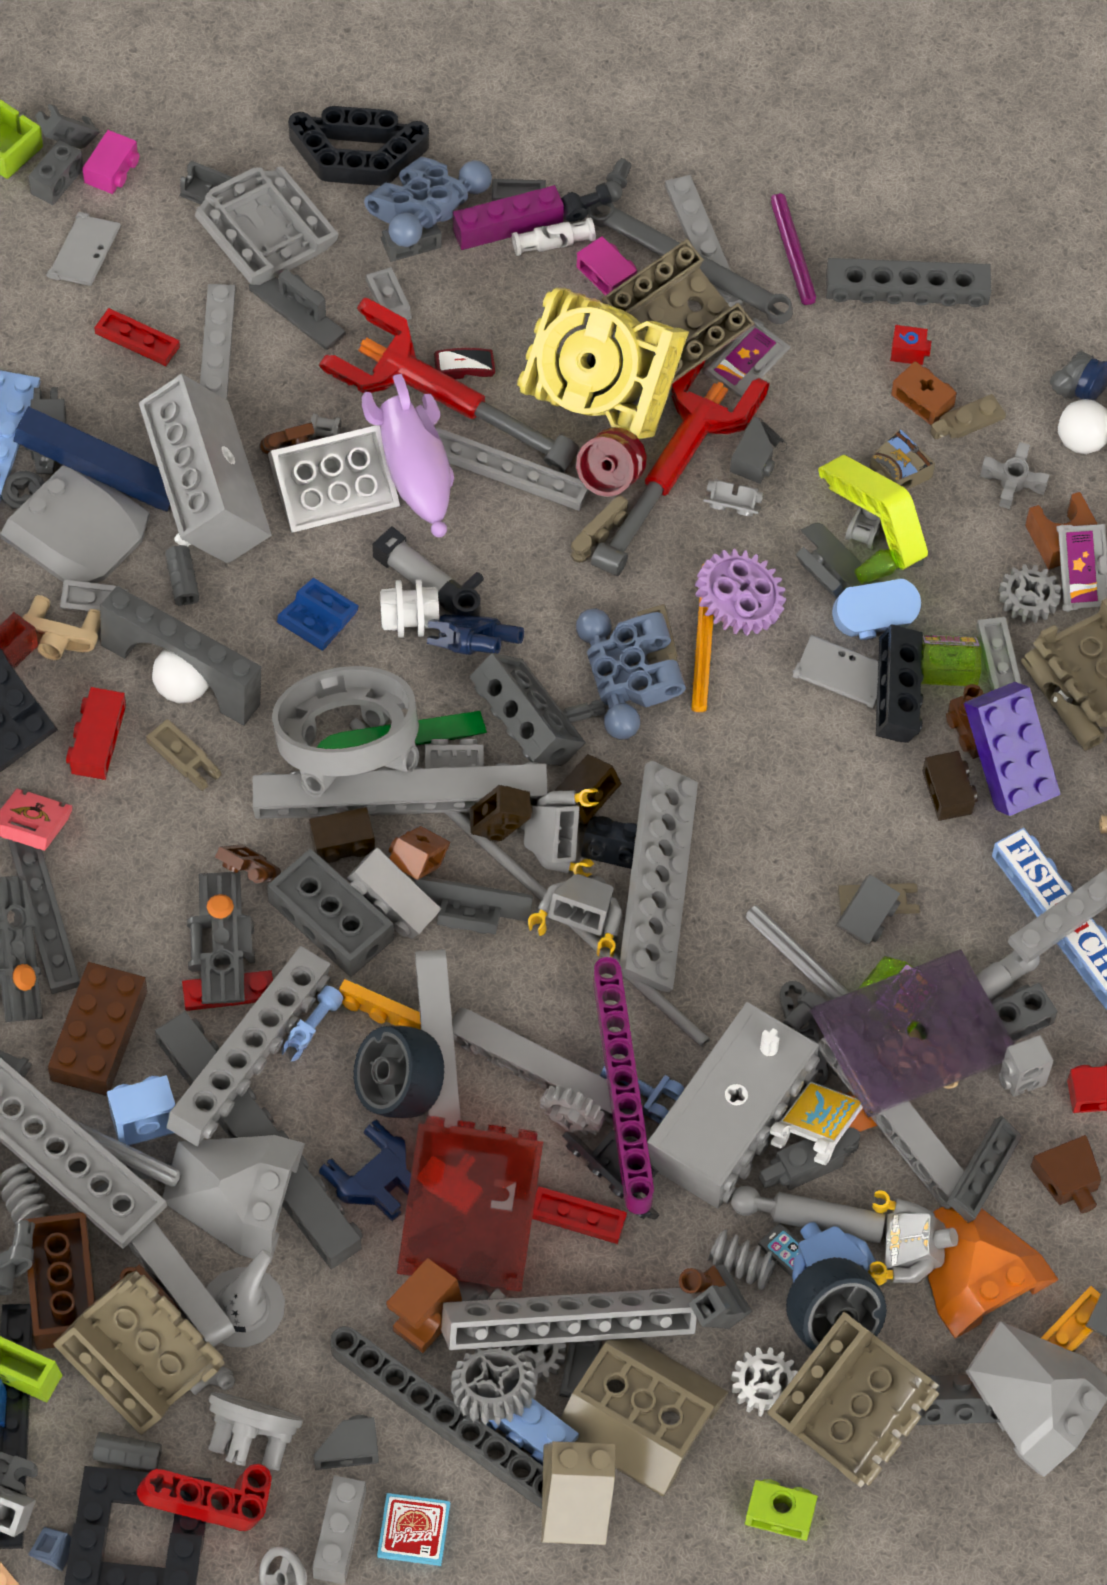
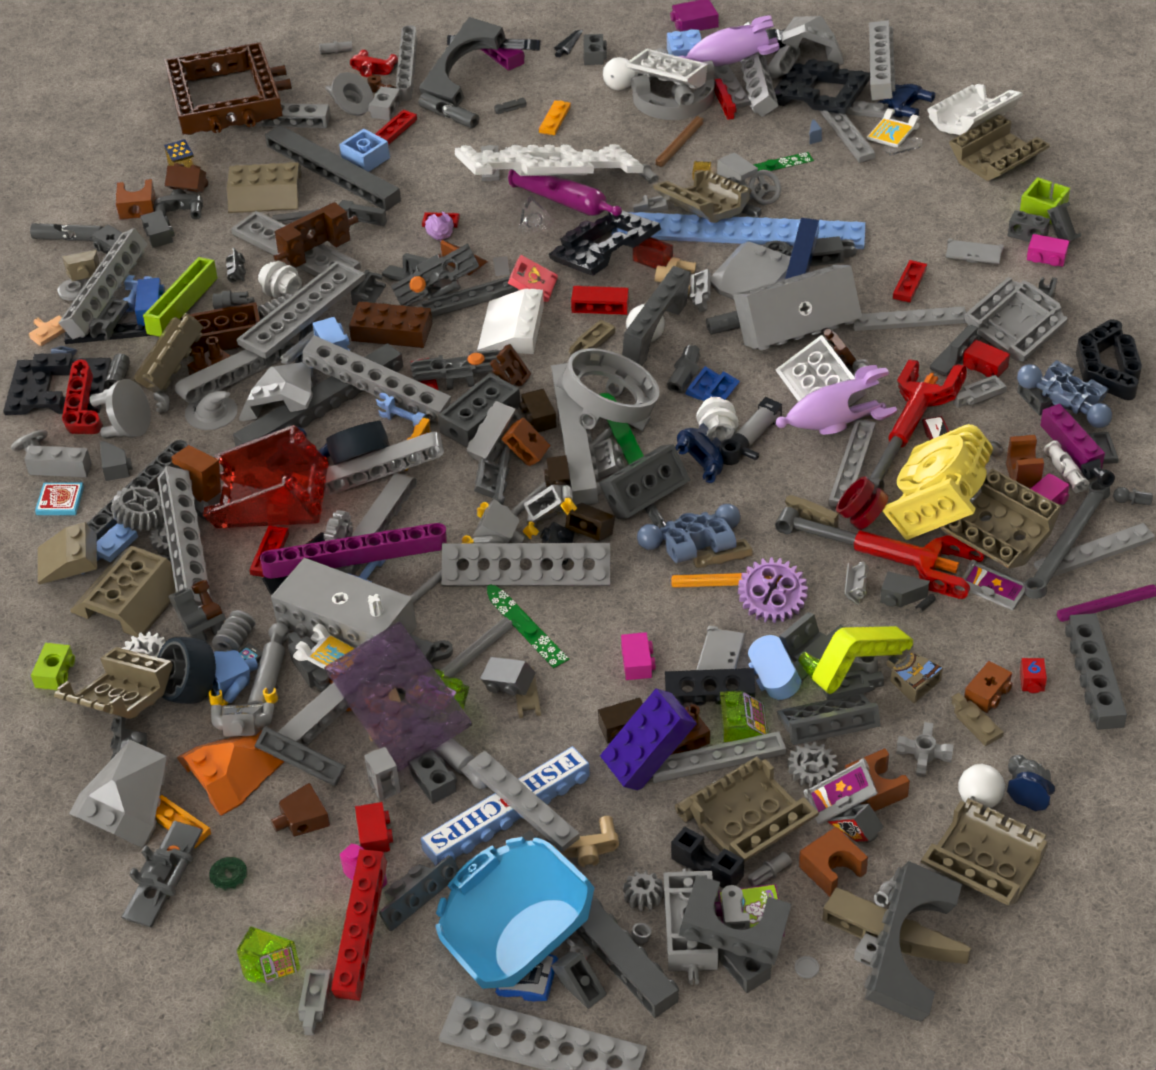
camera: 90 degrees right, 15 degrees down
(123, 858) = (513, 321): none -> white slope
(263, 633) = (685, 369): none -> dark grey piece
(334, 276) = (986, 359): none -> red brick
(504, 310) = (997, 448): none -> light grey hinge
(548, 275) = (1022, 460): none -> dark orange piece
(757, 892) = (526, 626): none -> green piece
(836, 761) = (636, 656): none -> dark pink brick
(982, 558) = (829, 720): none -> dark grey fence

